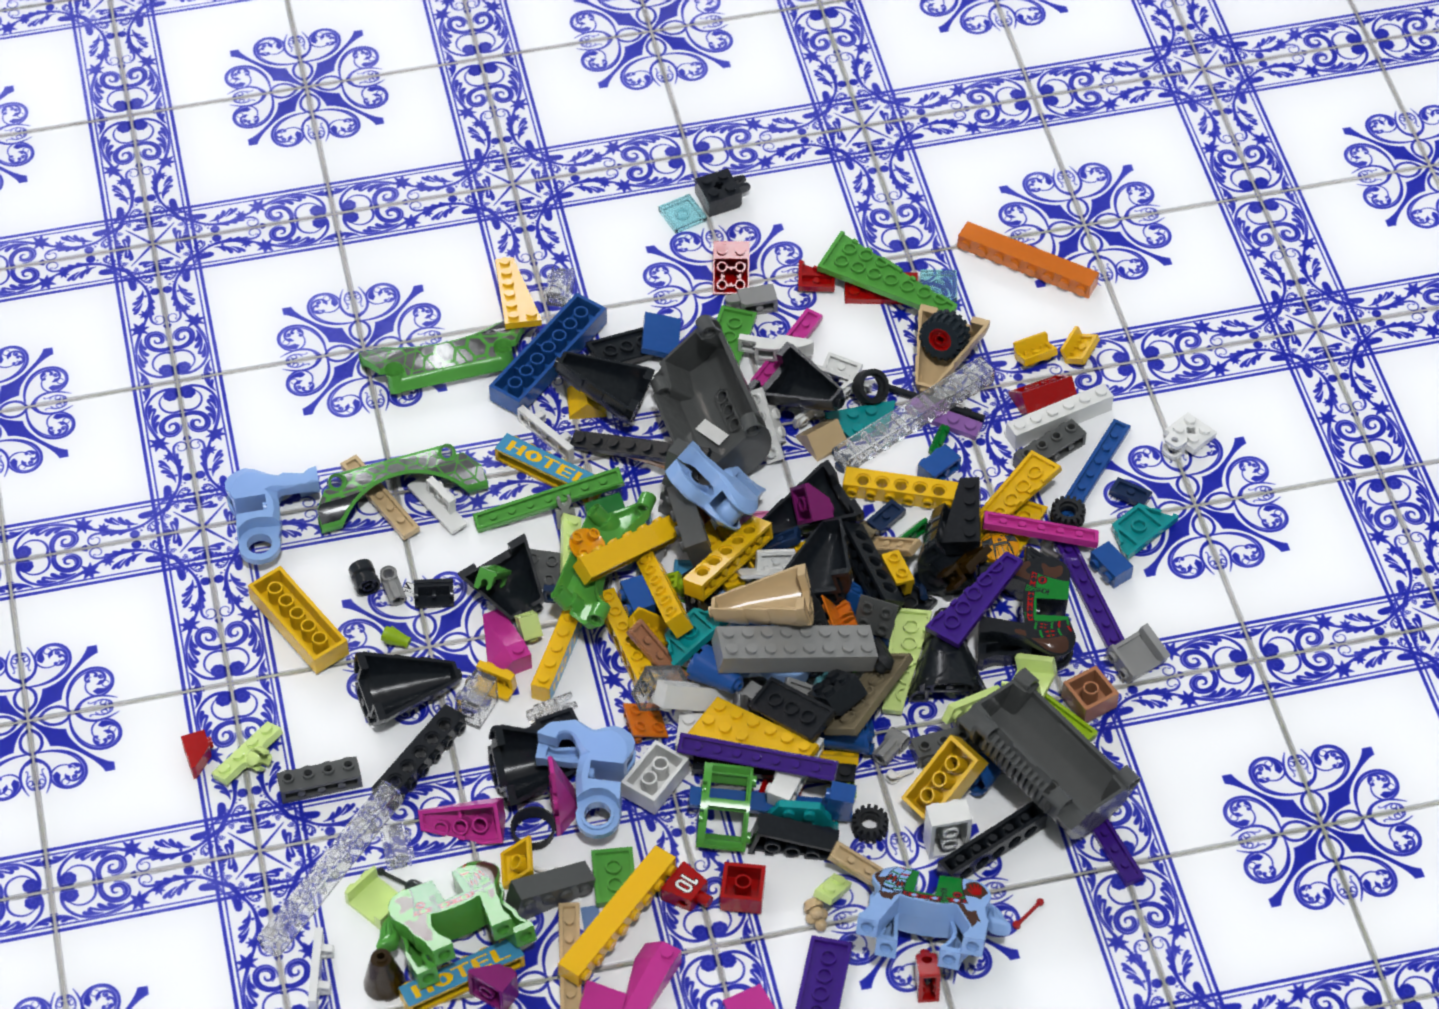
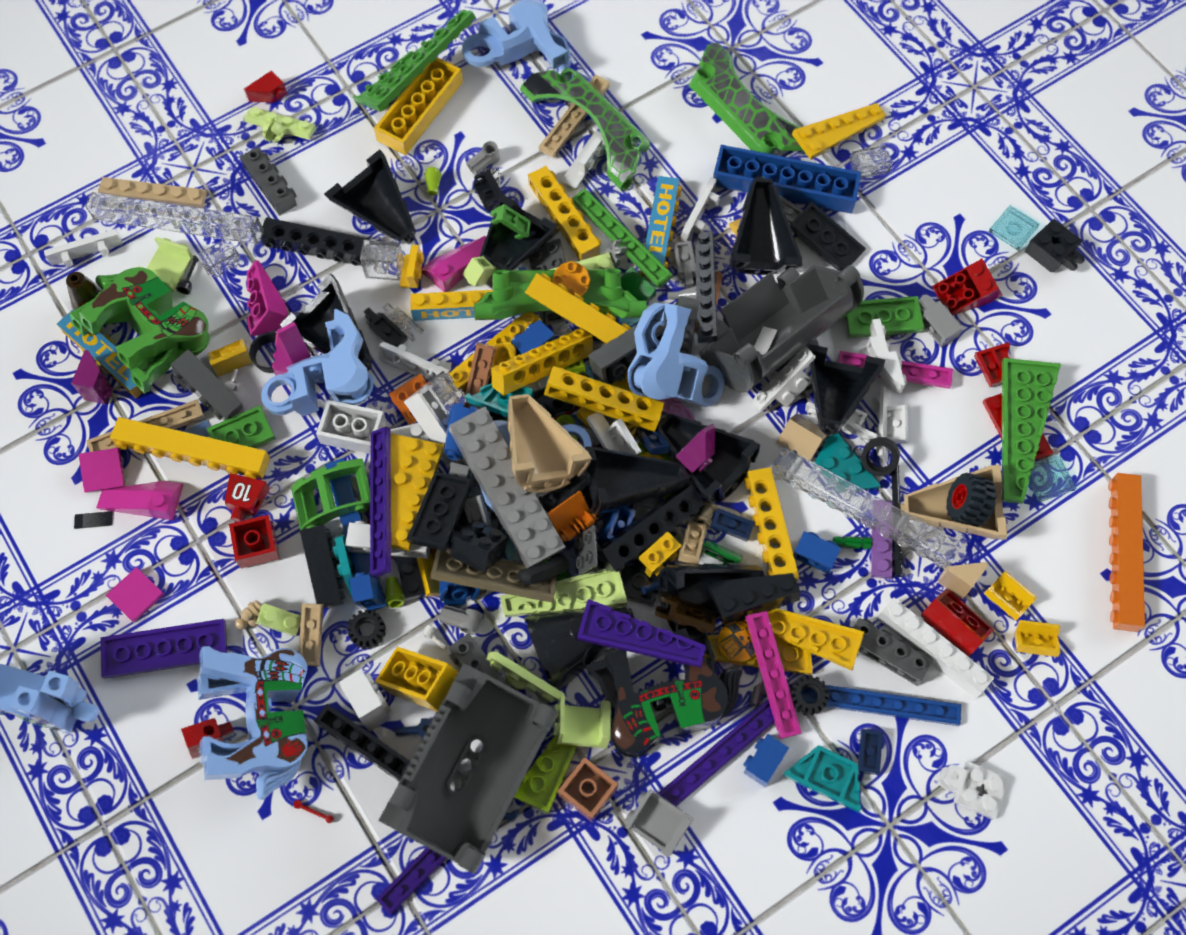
camera: 70 degrees right, 15 degrees up
(259, 622) = (412, 64): none -> bright green wing
(273, 894) = (154, 192): none -> tan plate
(364, 577) = (483, 133): black wheel -> none
(491, 540) = (545, 178): none -> yellow brick
(598, 462) = (685, 262): none -> light grey hinge
(608, 707) = (408, 362): none -> white hinge
(635, 470) = (688, 292): none -> light grey cone
(659, 334) = (859, 253): blue tile -> none
(983, 811) = (412, 730): none -> dark blue bar
(1010, 371) = (961, 578): none -> tan slope

